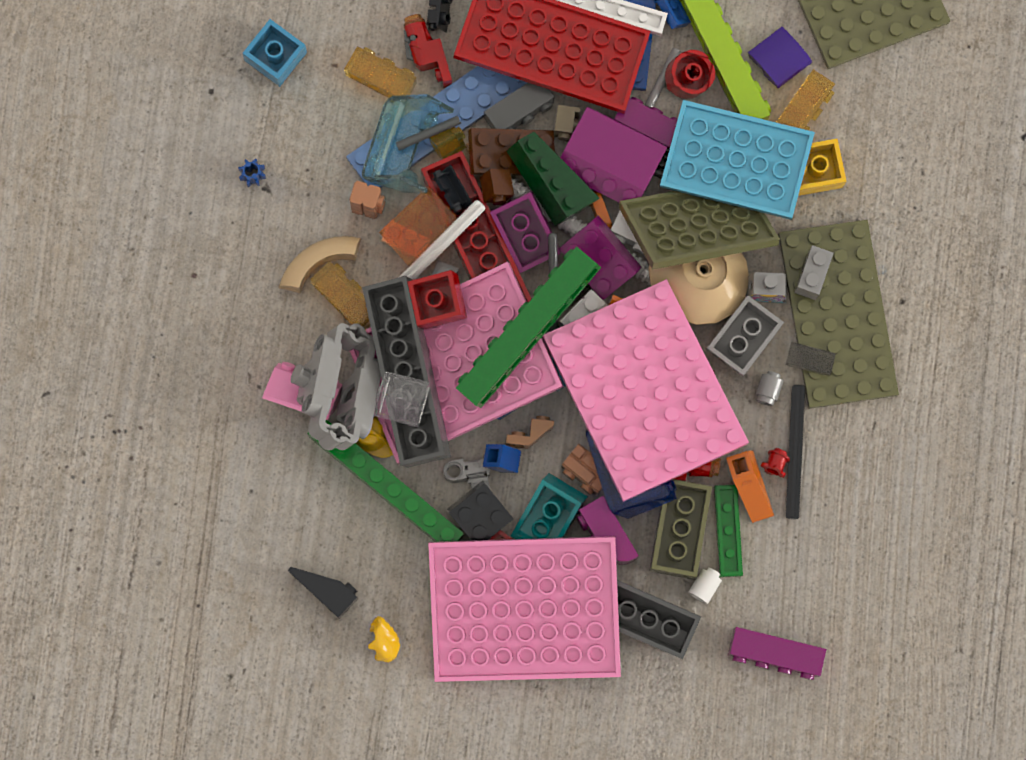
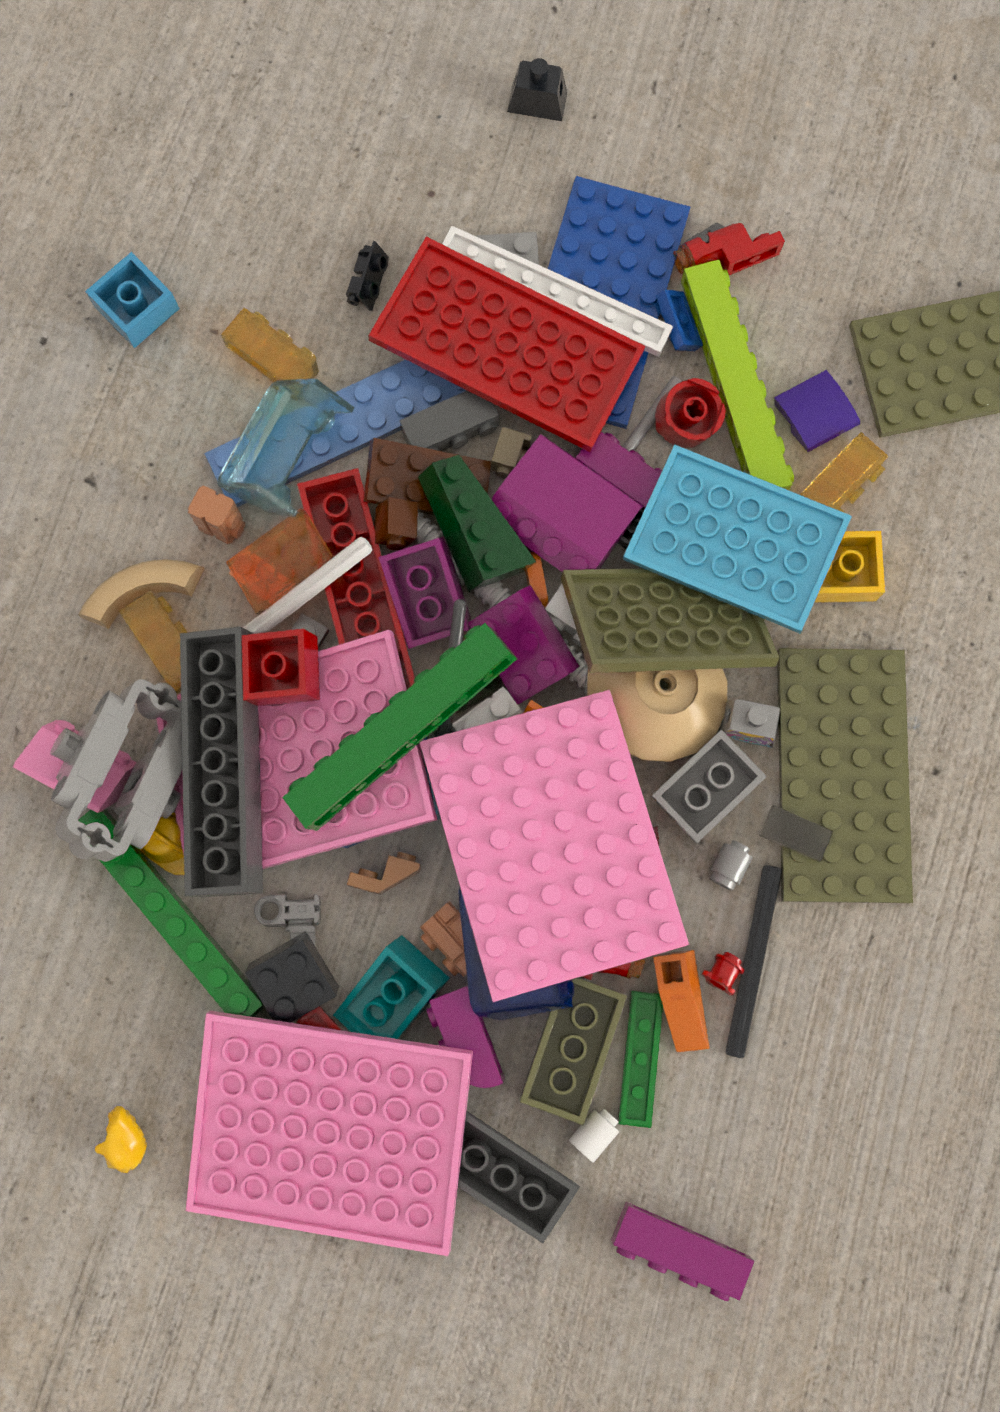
camera: 15 degrees right, 0 degrees up
(248, 167) = (71, 463): blue gear -> none
(330, 592) = (63, 1057): black slope -> none
(401, 399) = (202, 800): clear slope -> none
(424, 50) = (335, 328): red plate -> none
(427, 133) = (316, 437): dark grey piece -> none
(448, 142) = (342, 451): clear yellow brick -> none
(454, 191) = (336, 526): black hinge -> none
(501, 458) = (338, 904): blue brick -> none
(813, 272) = (819, 712): light grey brick -> none

